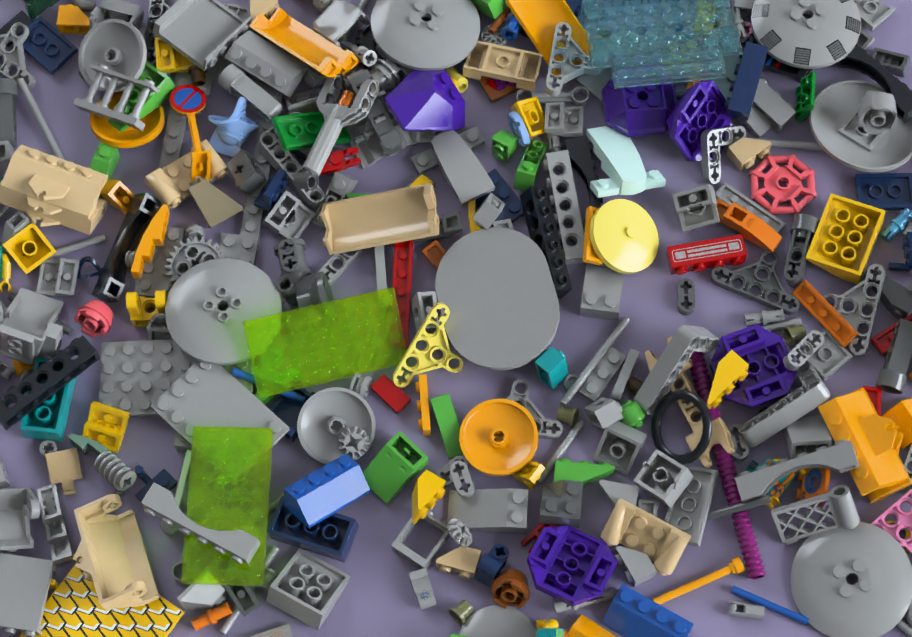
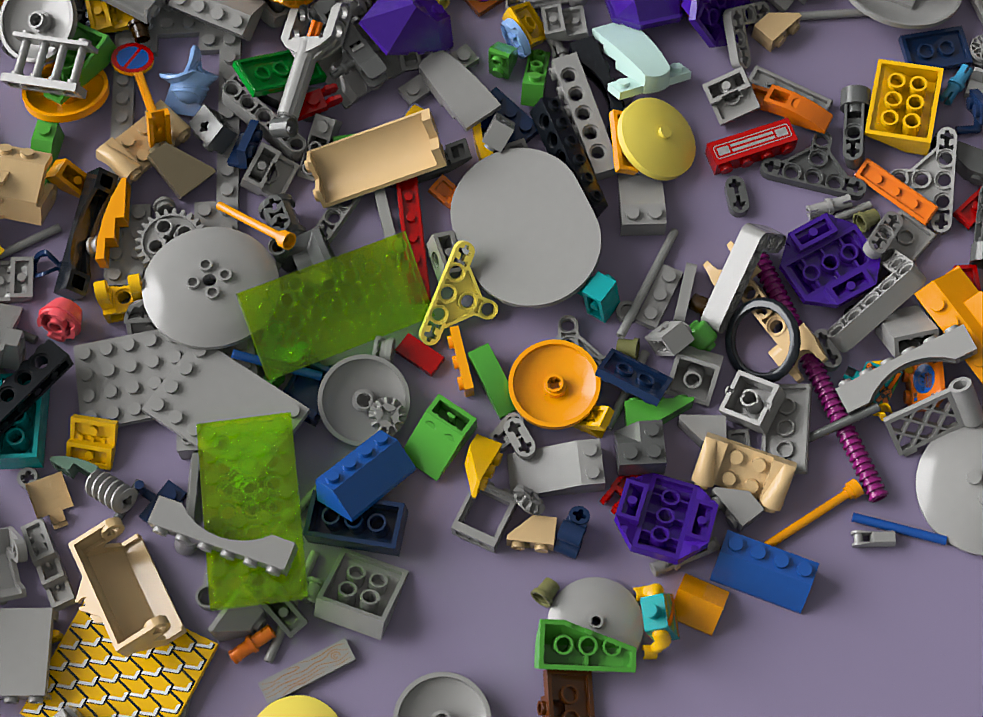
camera: 10 degrees left, 0 degrees up
(237, 82) = (213, 47): light grey beam -> none
(290, 279) = (284, 238): none -> light orange piece
(303, 101) = (265, 43): light grey slope -> none
(422, 588) = (495, 572): light grey leg -> none
(510, 589) = (599, 556): dark orange cone -> none
(566, 441) = (633, 377): none -> dark blue plate
(728, 372) = (804, 270): yellow slope -> none
(782, 194) = (821, 69): coral plate -> none

